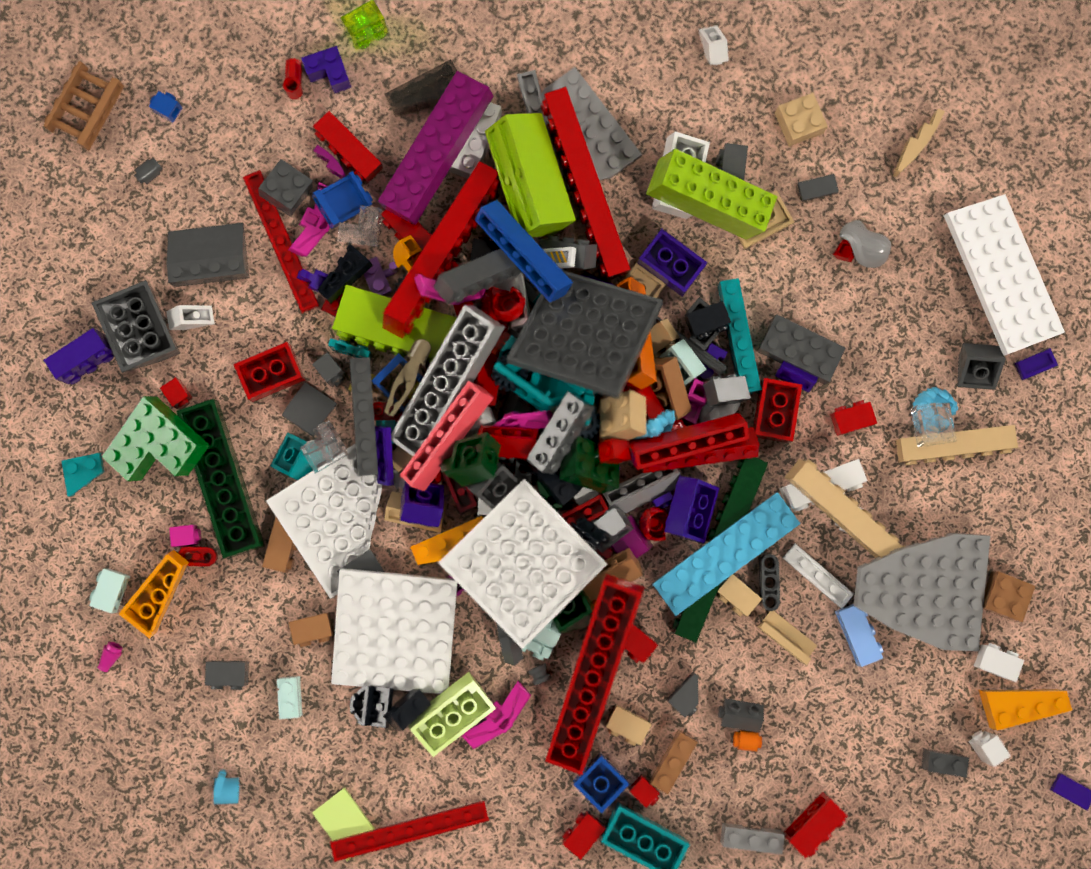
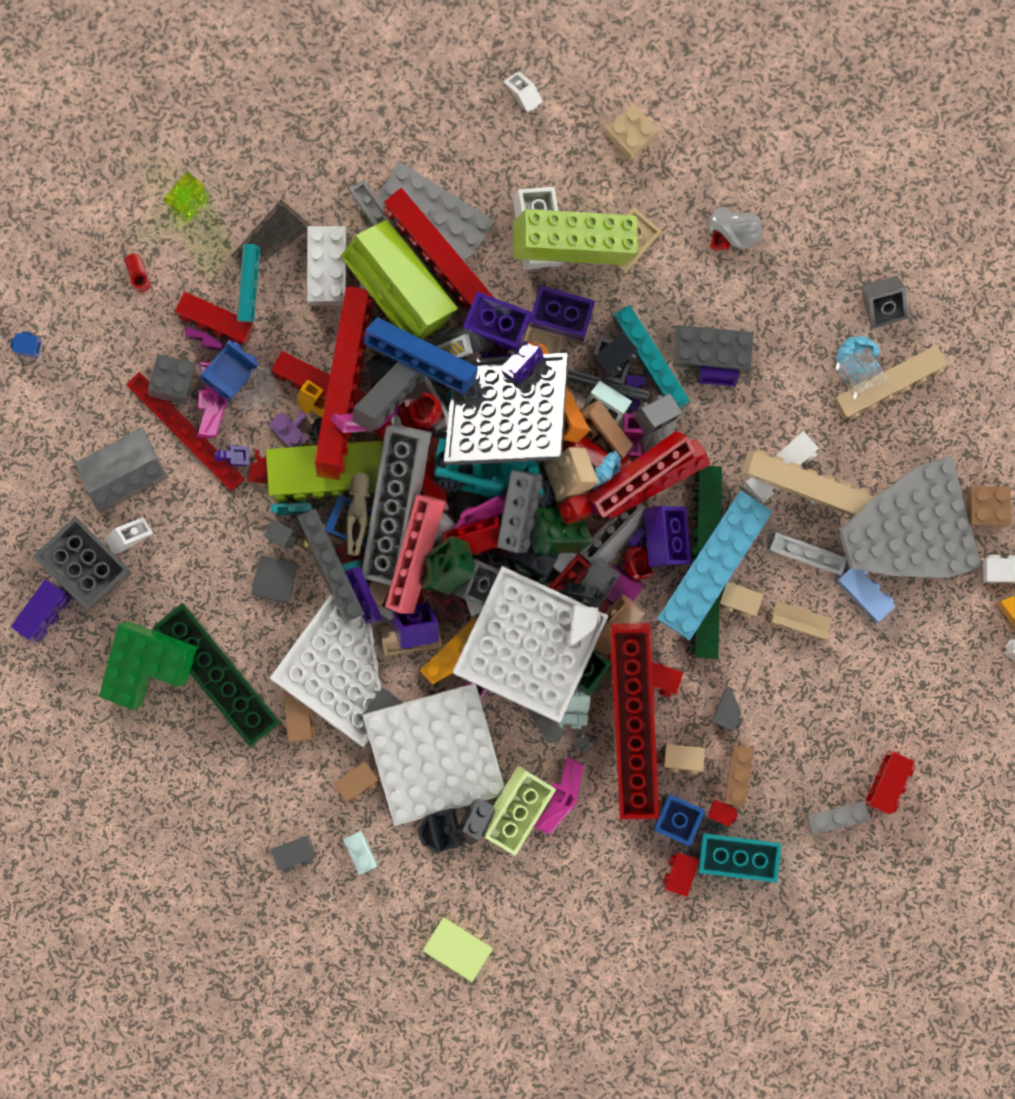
camera: 15 degrees left, 0 degrees up
(81, 471) = (82, 719): teal wing -> none
(109, 590) = (153, 818): light aqua brick -> none
(109, 656) = (177, 879): dark pink cone -> none
(148, 171) = (34, 412): dark grey brick -> none
(152, 599) = (197, 811): light orange wedge -> none
(176, 393) = (144, 612): red brick -> none
(184, 535) = (204, 741): dark pink brick -> none
(198, 555) = (223, 755): red plate -> none
(225, 789) = (335, 959): medium azure piece -> none
(269, 372) = (224, 558): red brick -> none
(291, 459) = (280, 628): teal slope -> none
(325, 448) = (306, 608): clear brick -> none
(327, 64) = (166, 247): dark purple brick -> none
(347, 272) = (260, 437): black wing -> none
(390, 124) = (248, 283): none -> teal brick
(409, 831) = (519, 932): red tile -> none
(436, 148) = (300, 289): magenta brick -> none
(580, 562) = (582, 622): none -> white slope
(609, 246) = (498, 321): none -> dark purple slope
(617, 293) = (522, 362): none -> bracket
(663, 337) = (580, 386): tan brick -> none
(733, 159) = (582, 196): dark grey brick -> none
(741, 715) = (785, 709): dark grey brick -> none
(747, 740) = (799, 730): orange brick -> none
(774, 591) = (766, 567): dark grey beam -> none
(777, 410) = (712, 414): red brick -> none
(817, 187) = (672, 190): dark grey tile -> none
(853, 418) = (786, 394): red brick -> none
(916, 145) = (747, 118): tan slope -> none
(945, 763) = (988, 681): dark grey brick -> none
(1004, 274) = (875, 207): white plate -> none
(1036, 364) = (937, 279): dark purple tile -> none

